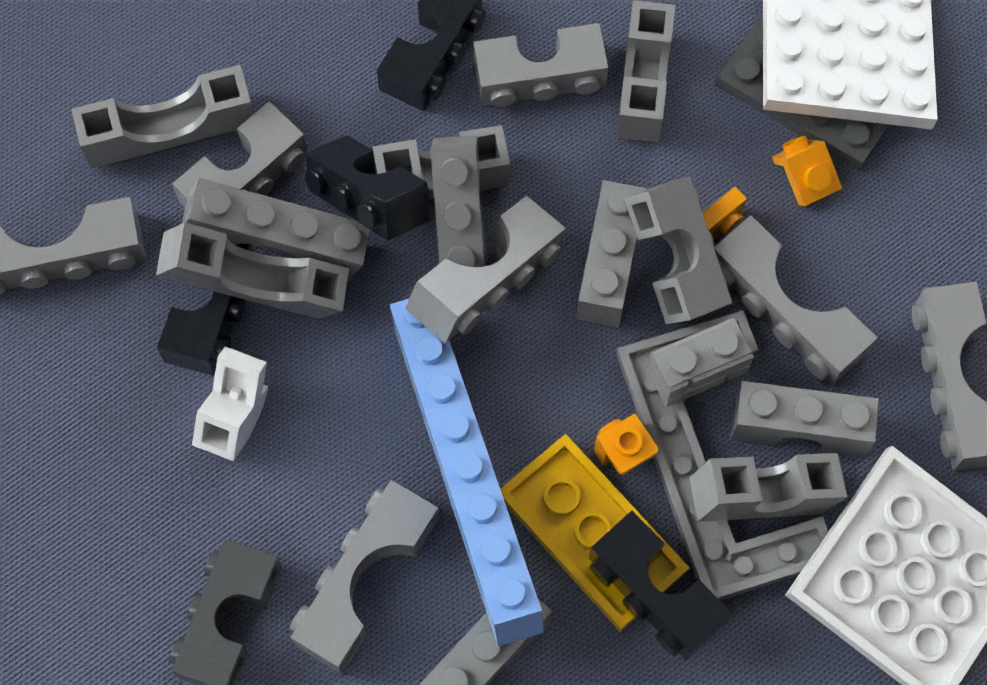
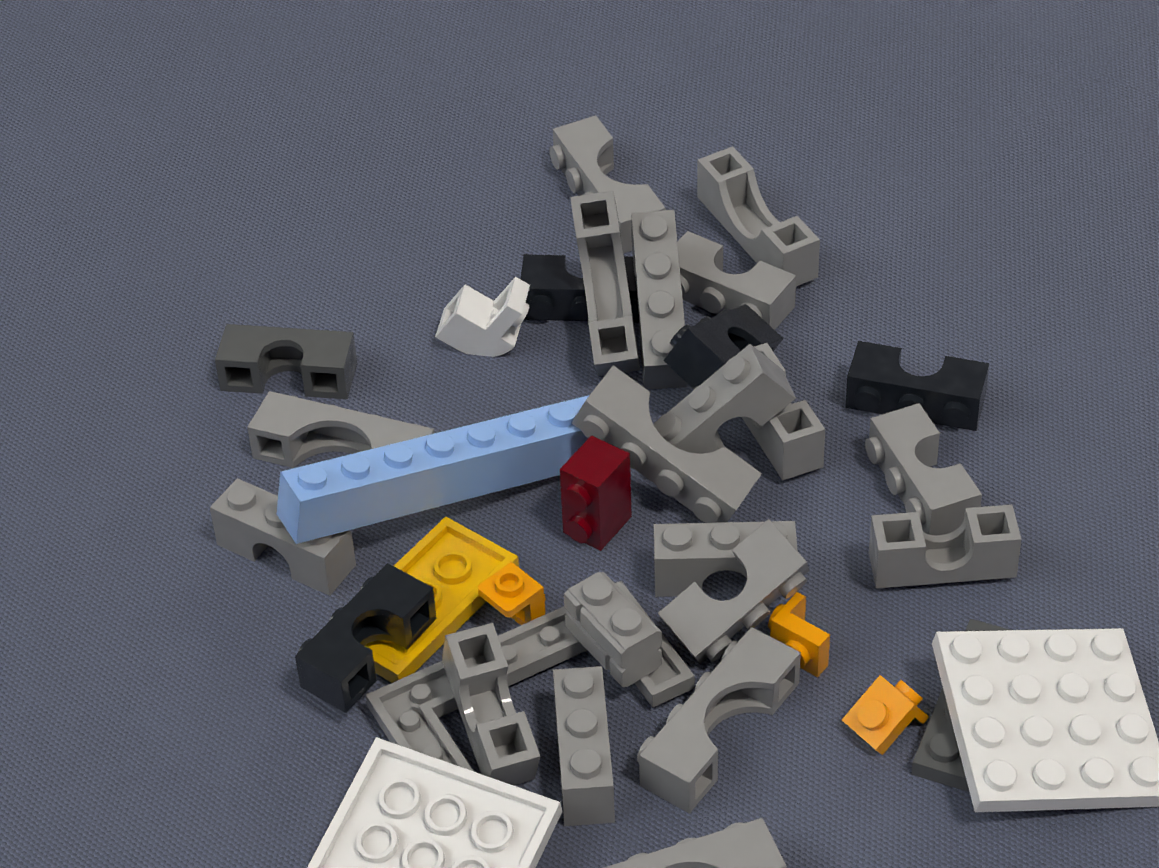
camera: 80 degrees right, 25 degrees down
(518, 344) = (595, 493): none -> dark red brick

